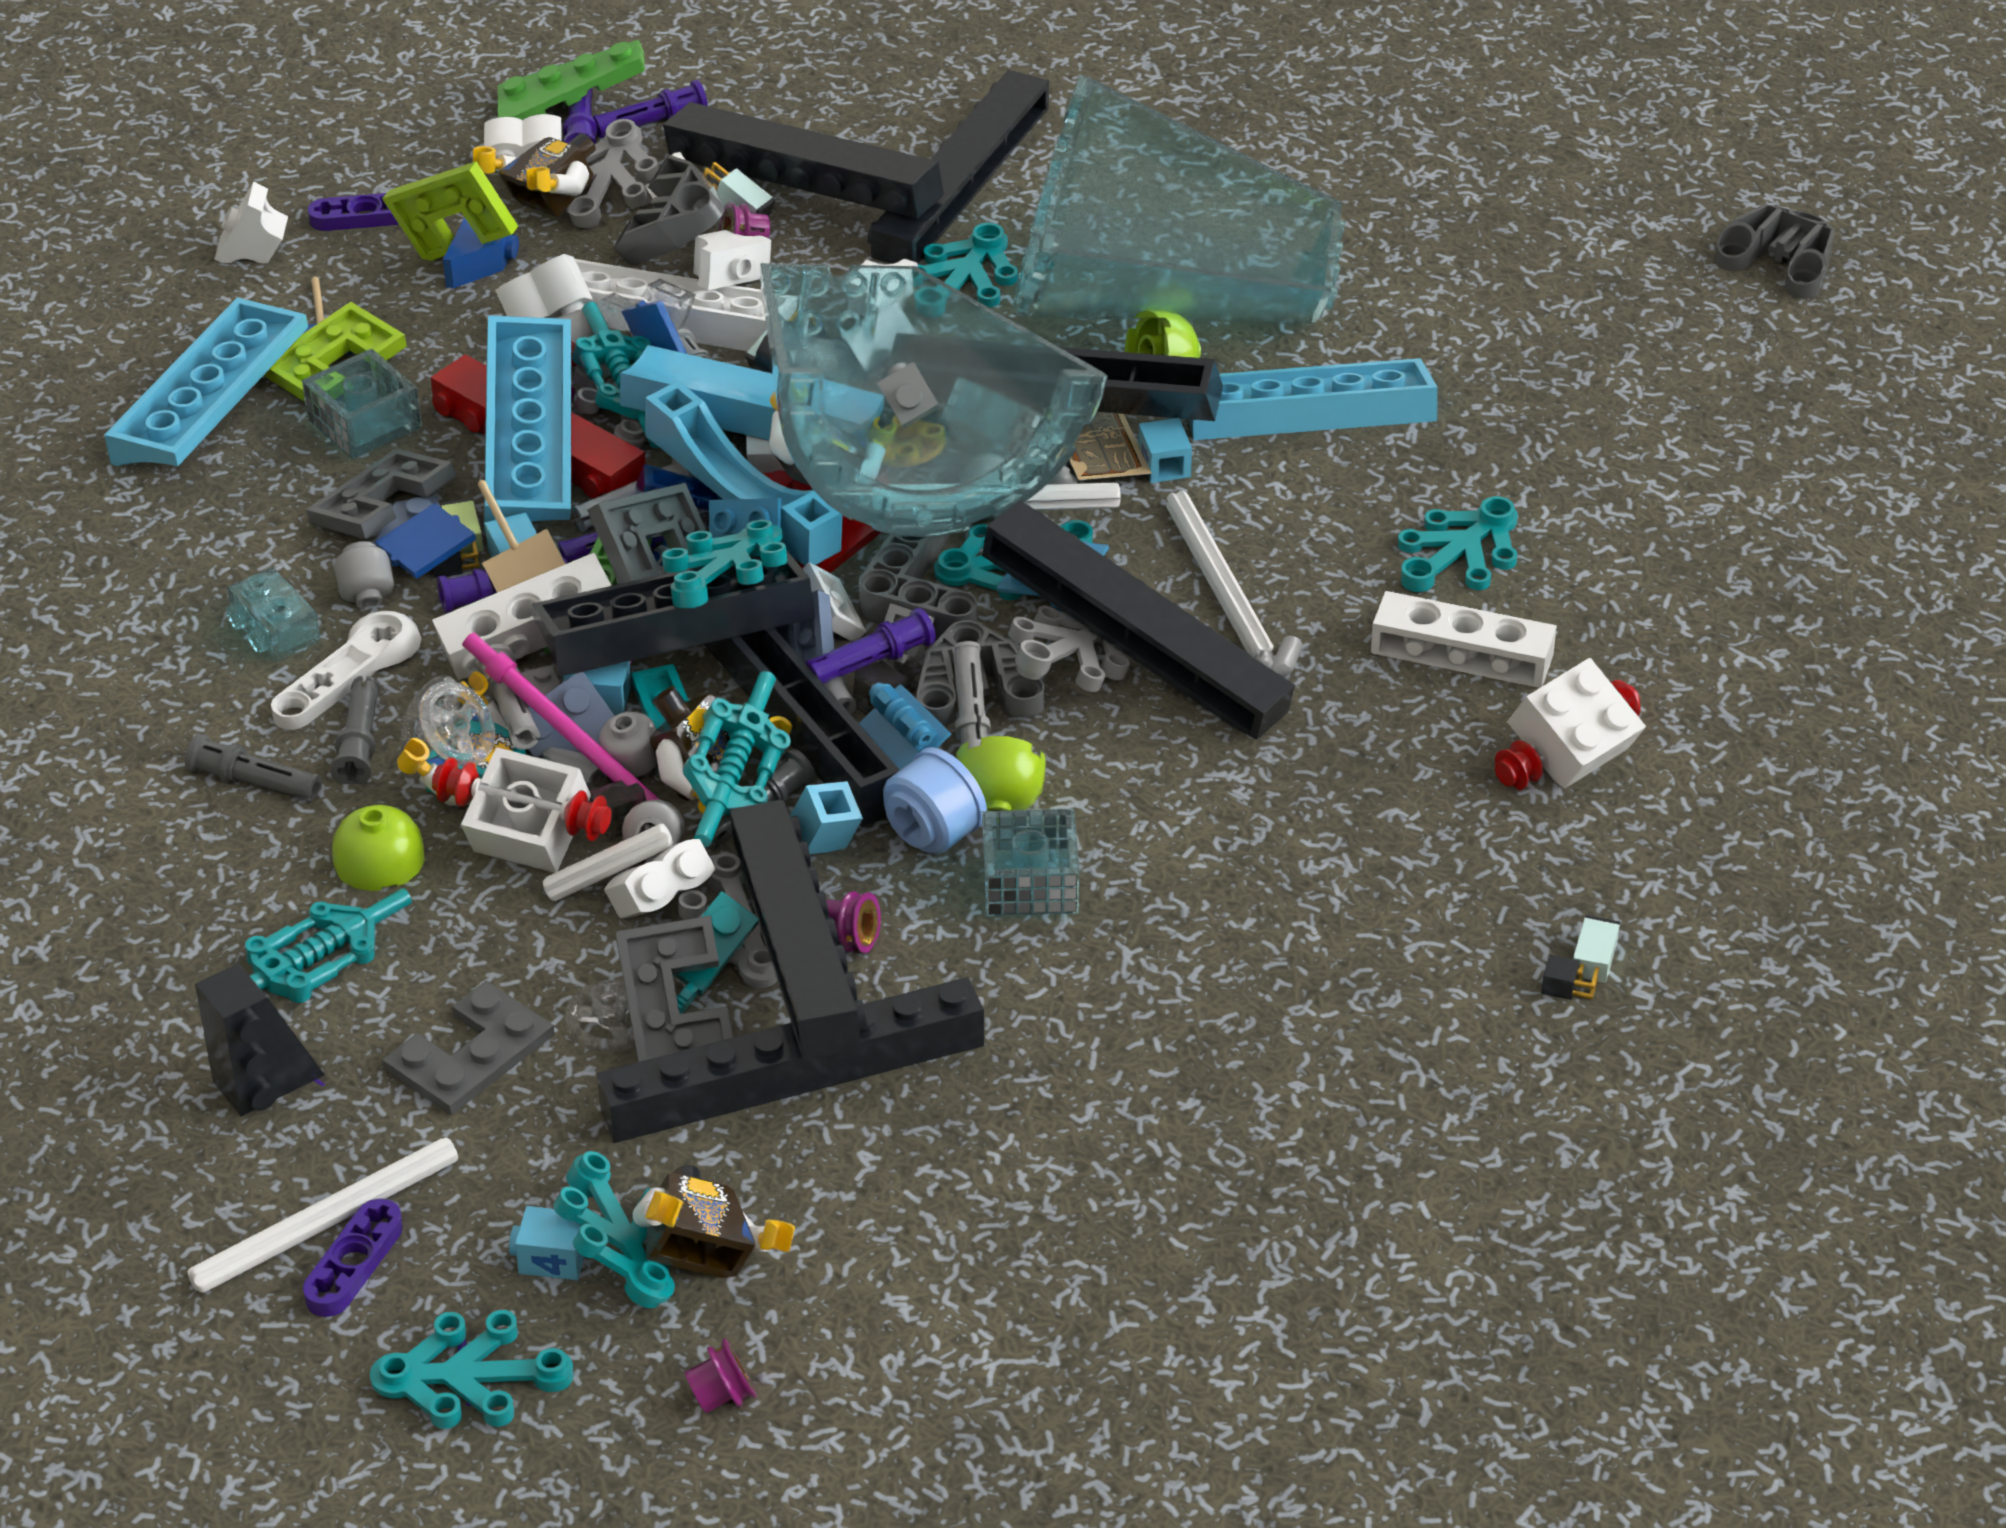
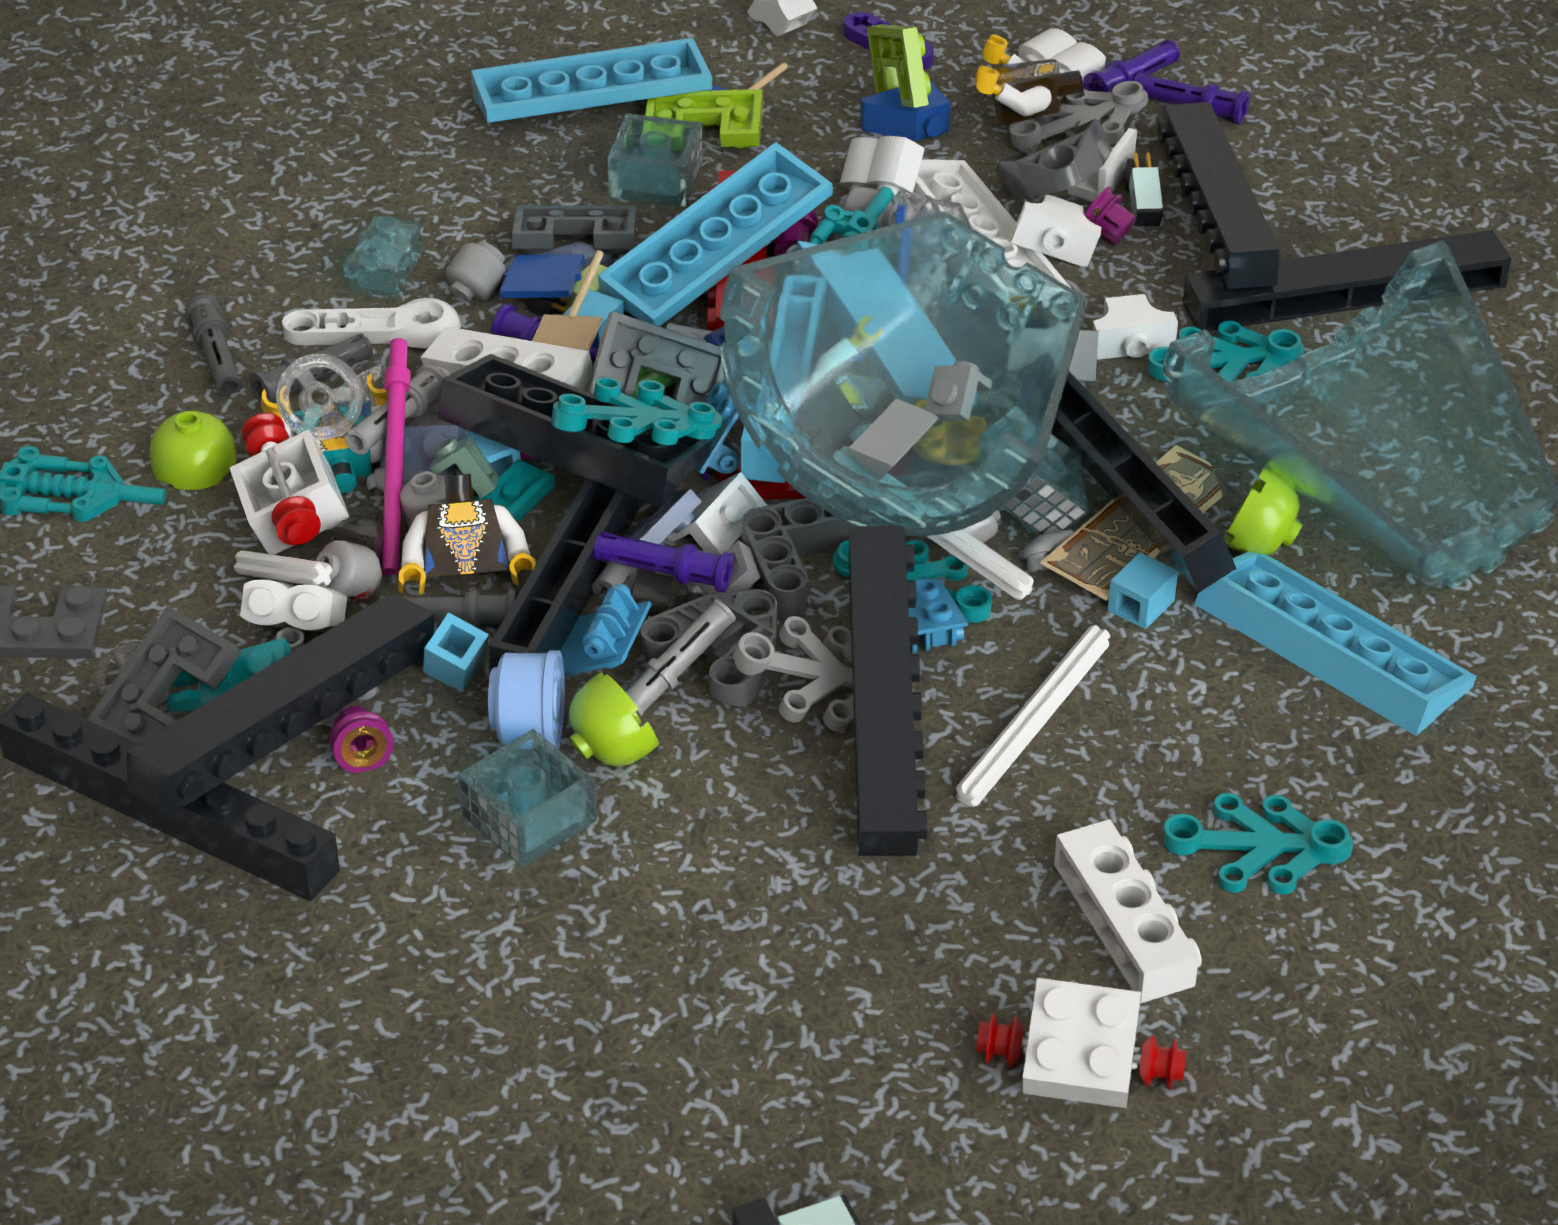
camera: 50 degrees right, 0 degrees up
(570, 81) = (1149, 35): bright green wing -> none
(620, 693) = (469, 461): none -> sand green bracket
(747, 728) = (489, 544): teal bar -> none
(915, 452) = (890, 437): none -> light grey slope
(1285, 658) = (967, 815): light grey arm -> none

